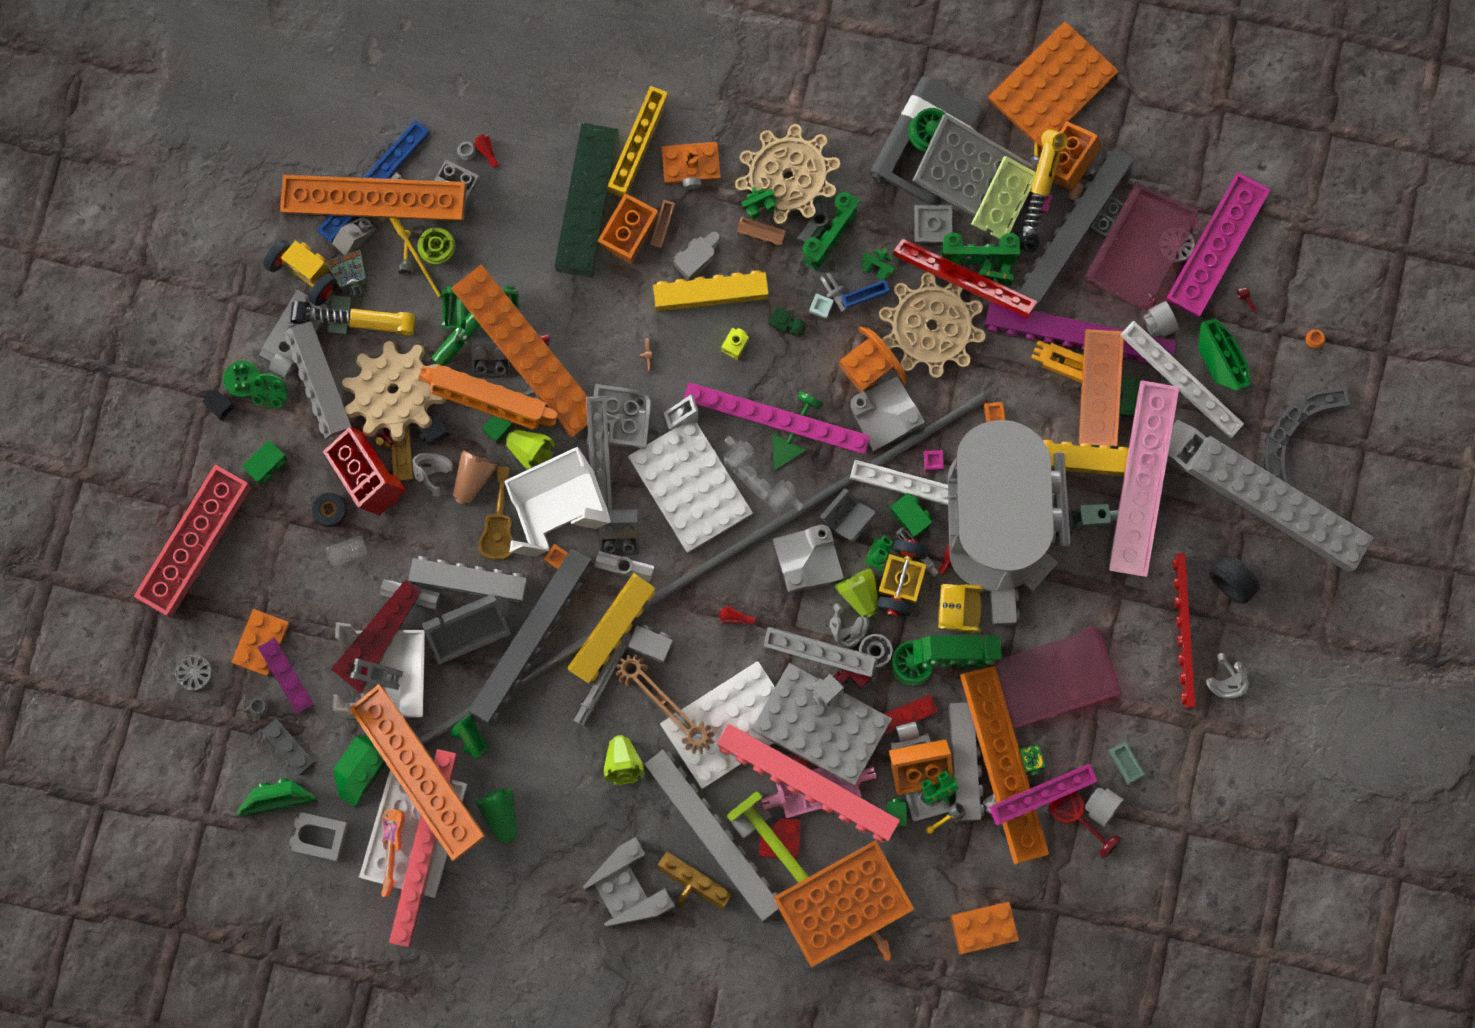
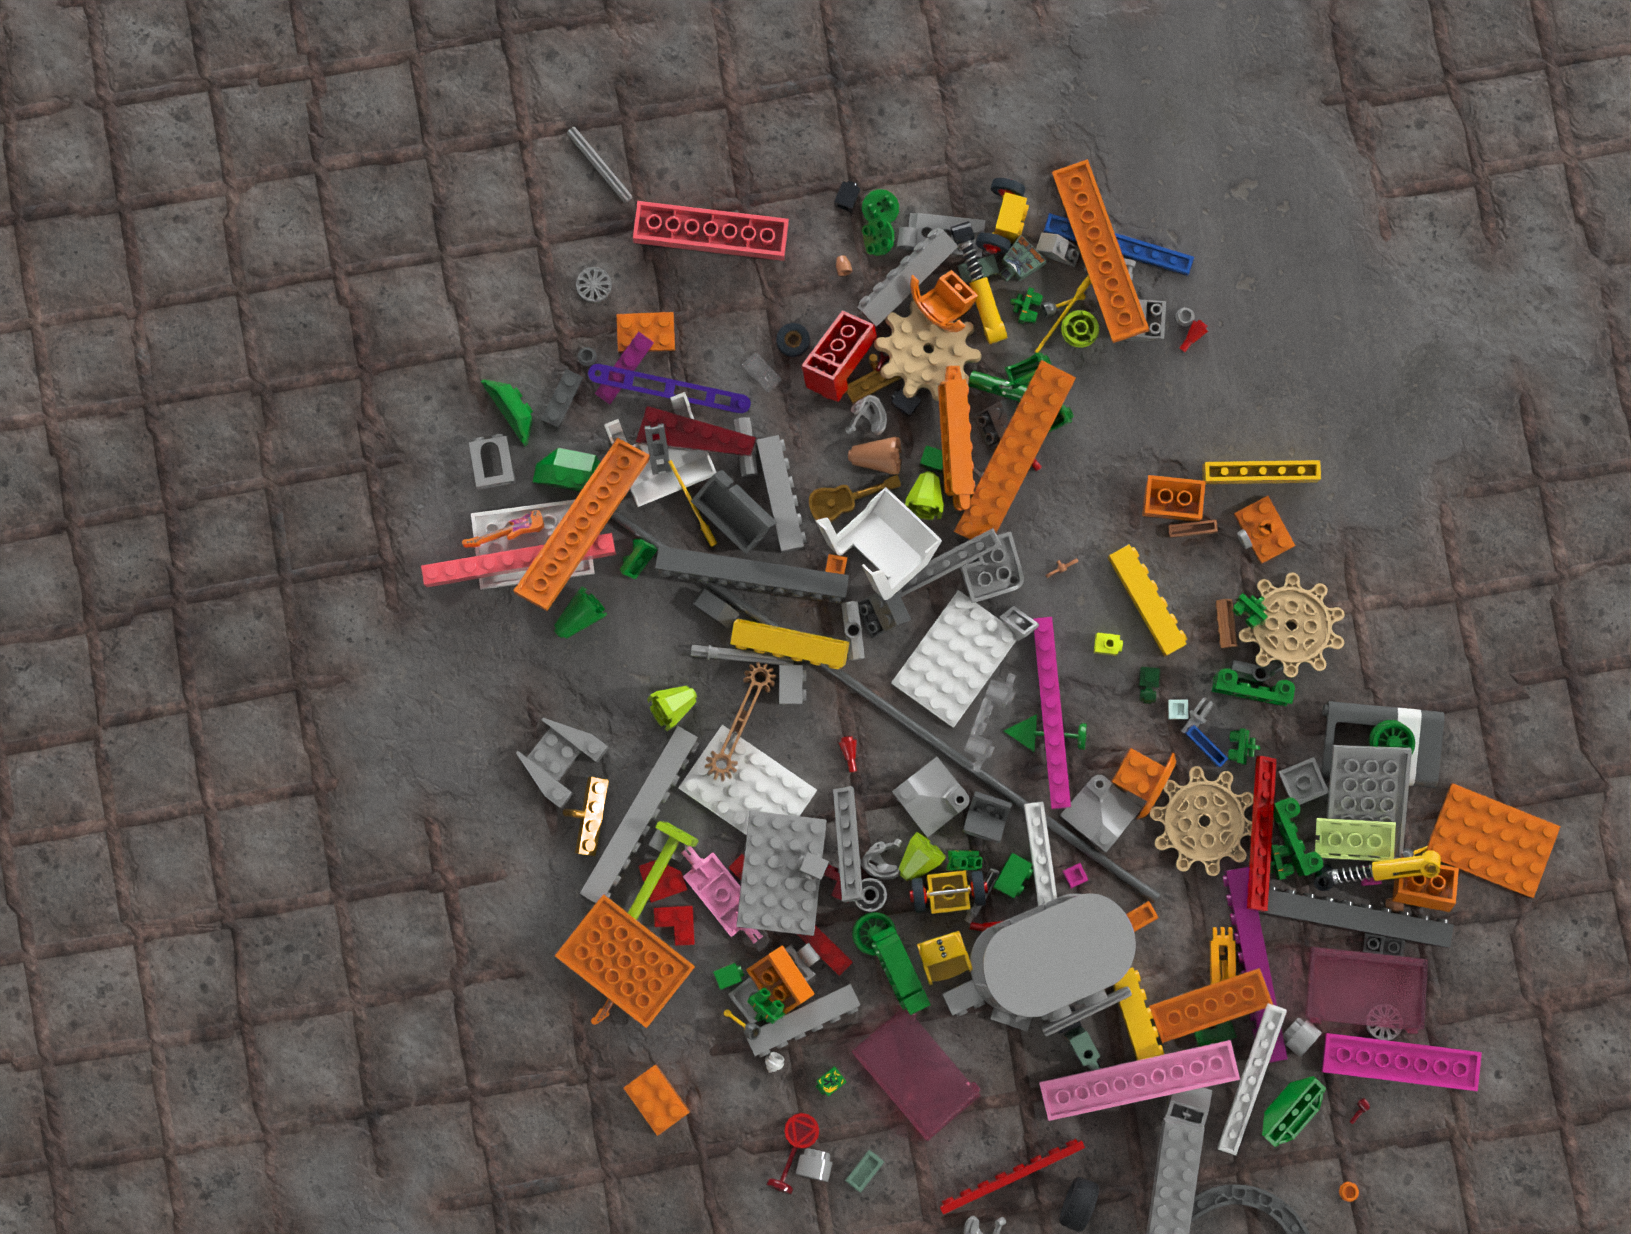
camera: 65 degrees right, 5 degrees up
(82, 620) = (599, 164): none -> light grey axle
(265, 463) = (810, 263): green brick -> none
(281, 435) = (843, 266): none -> nougat hose
(356, 355) = (945, 301): none -> orange piece
(366, 584) = (739, 402): none -> dark purple piece
(388, 279) = (1031, 298): none -> green hips
(468, 663) = (704, 527): none -> yellow piece
(548, 684) = (715, 608): none -> dark grey slope
(587, 200) = (1185, 448): clear green brick -> none
(697, 255) = (1176, 573): light grey hinge -> none
(807, 782) = (721, 882): coral brick -> none
(825, 837) = (682, 920): none -> red plate
(1003, 760) = (814, 1057): orange plate -> none
(1043, 794) = (801, 1104): dark pink plate -> none

